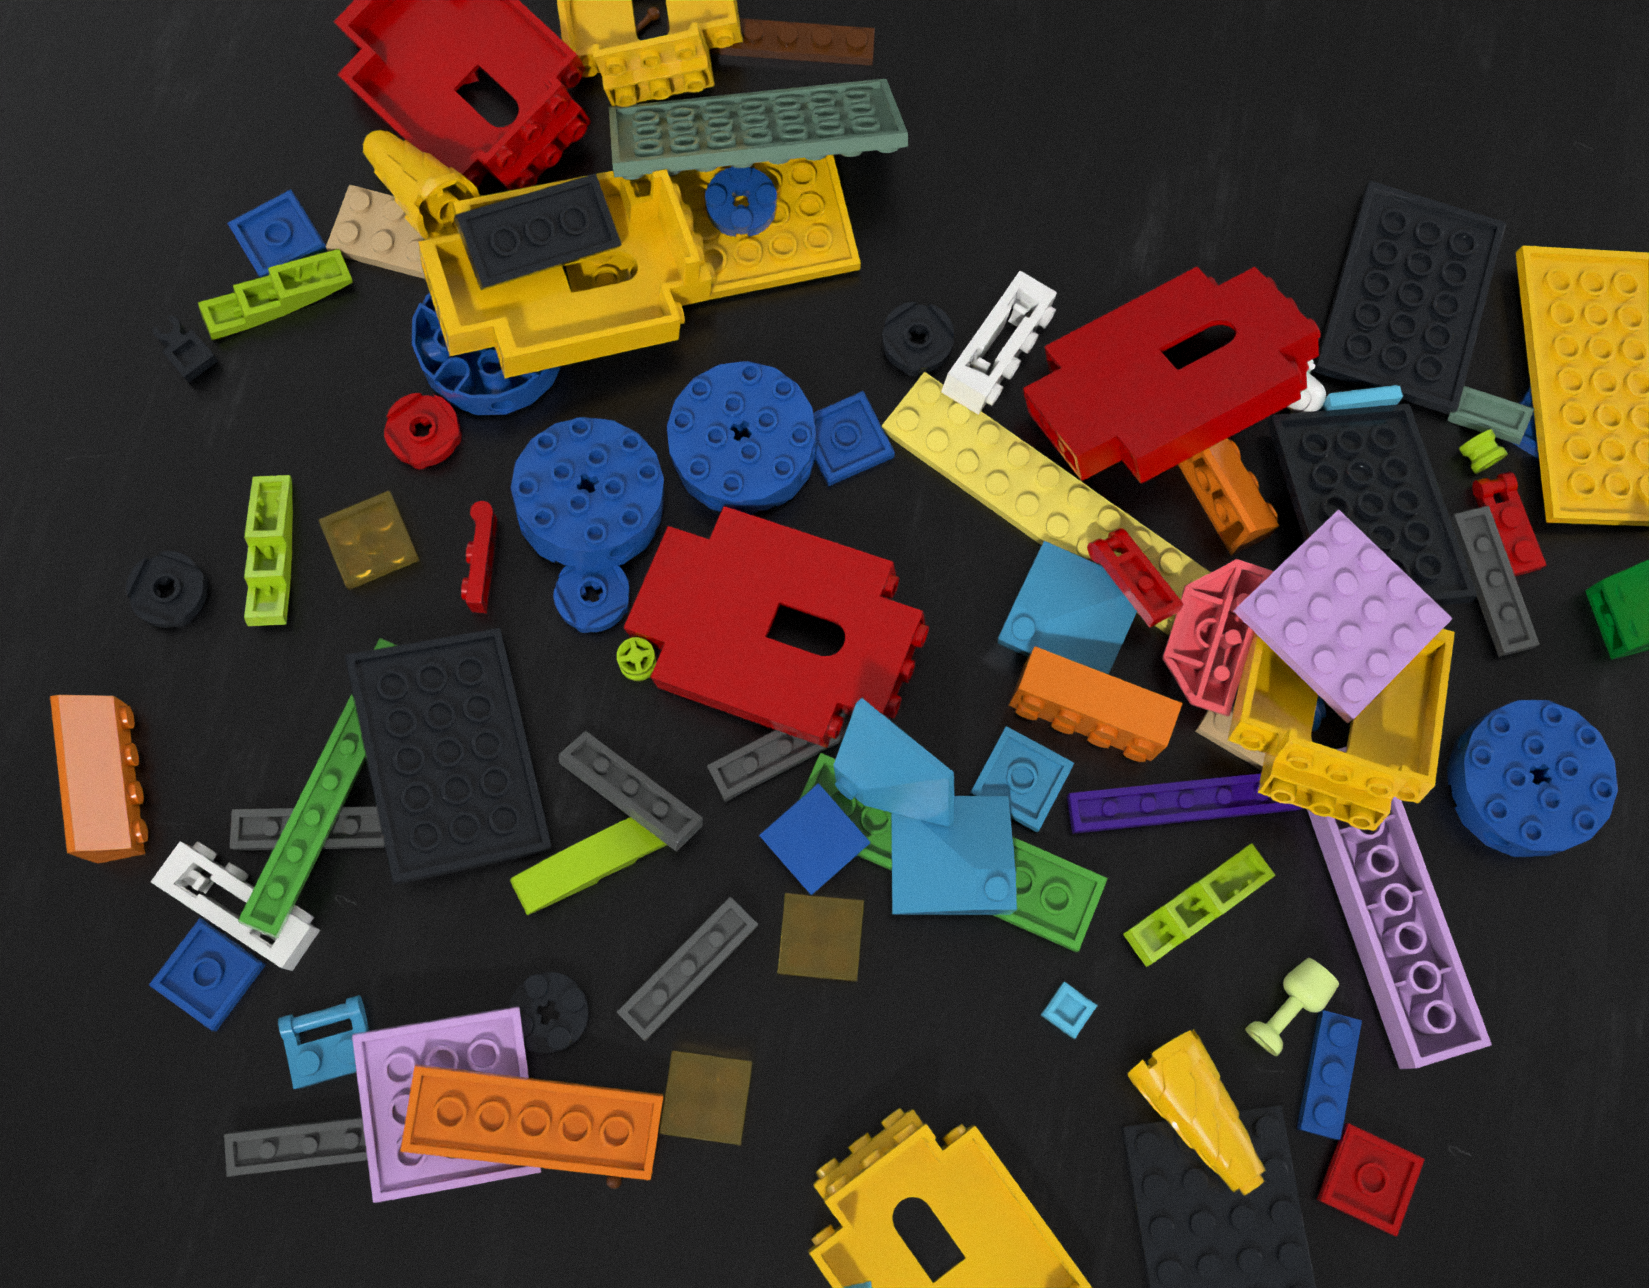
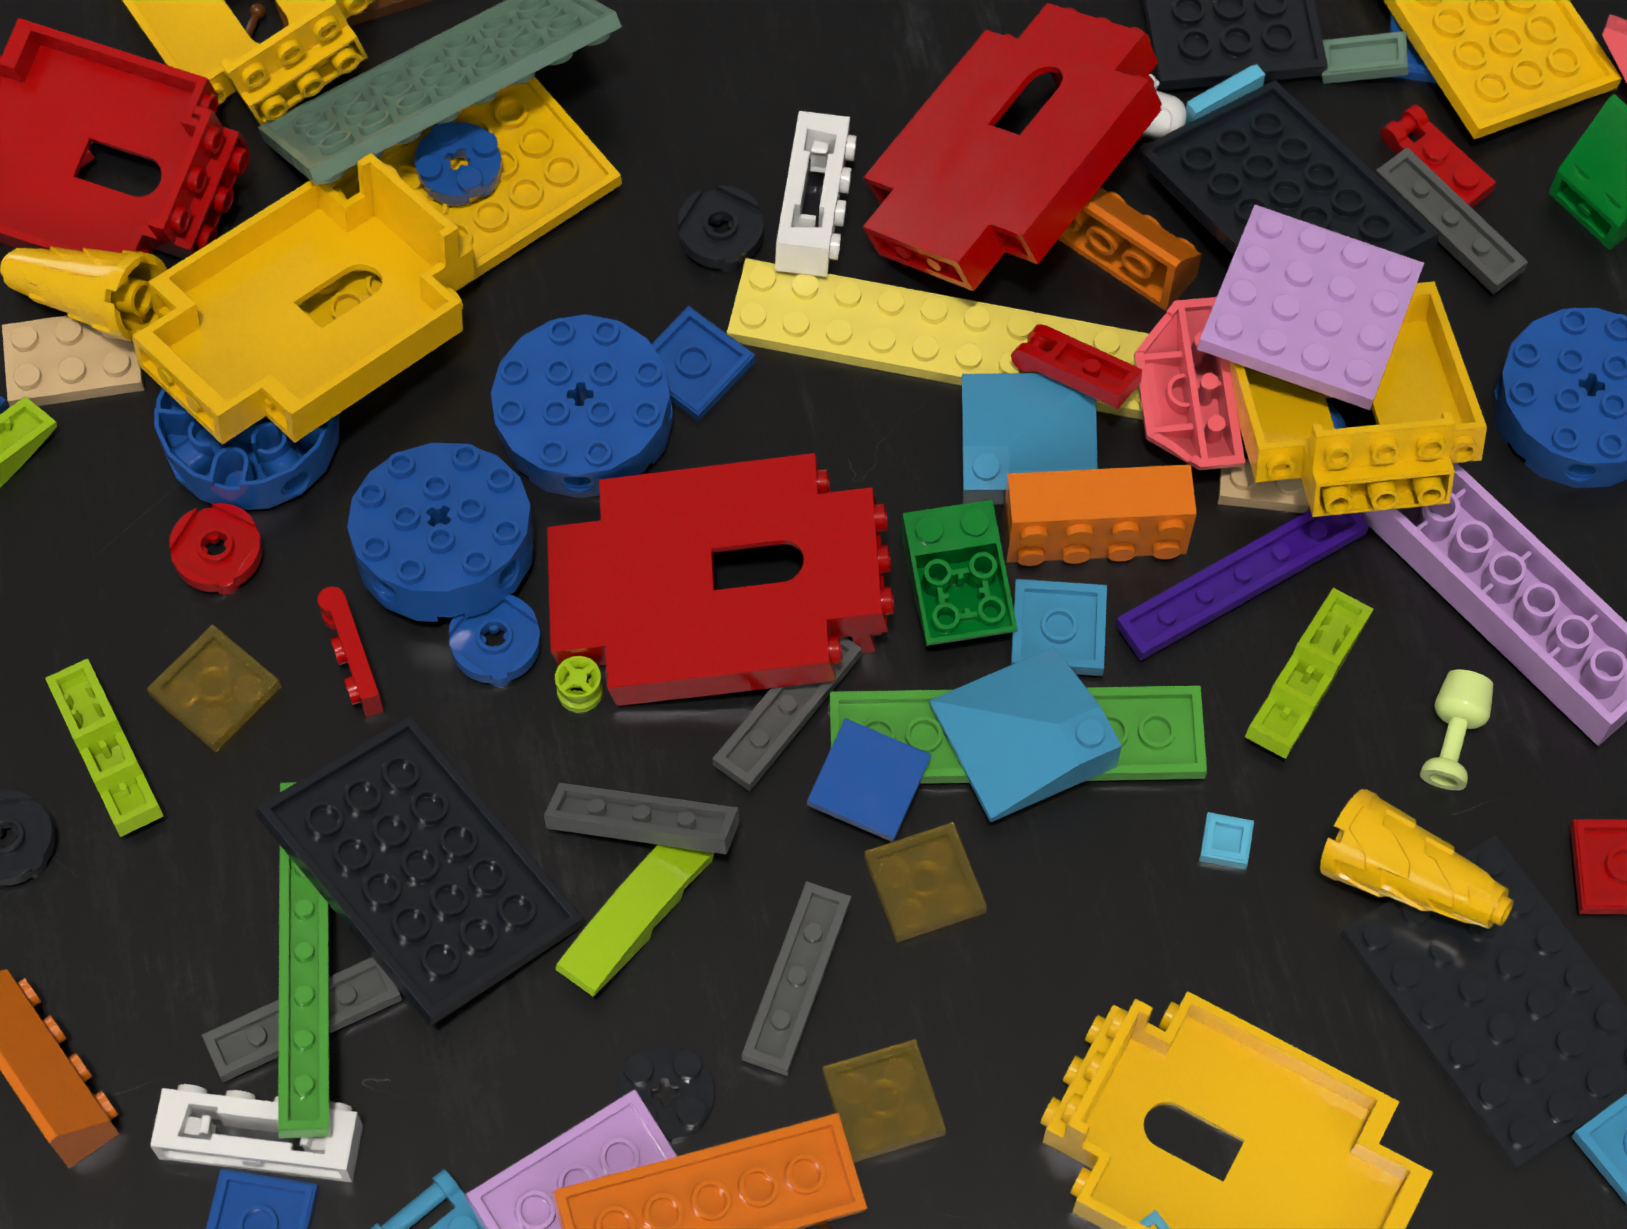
camera: 20 degrees left, 10 degrees down
(537, 231) = (258, 274): black plate -> none
(892, 770) = (923, 657): dark azure slope -> none
(963, 703) = (957, 572): none -> green slope
(1329, 1075) = (1529, 784): blue plate -> none
(1483, 451) = (1374, 96): lime wheel -> none

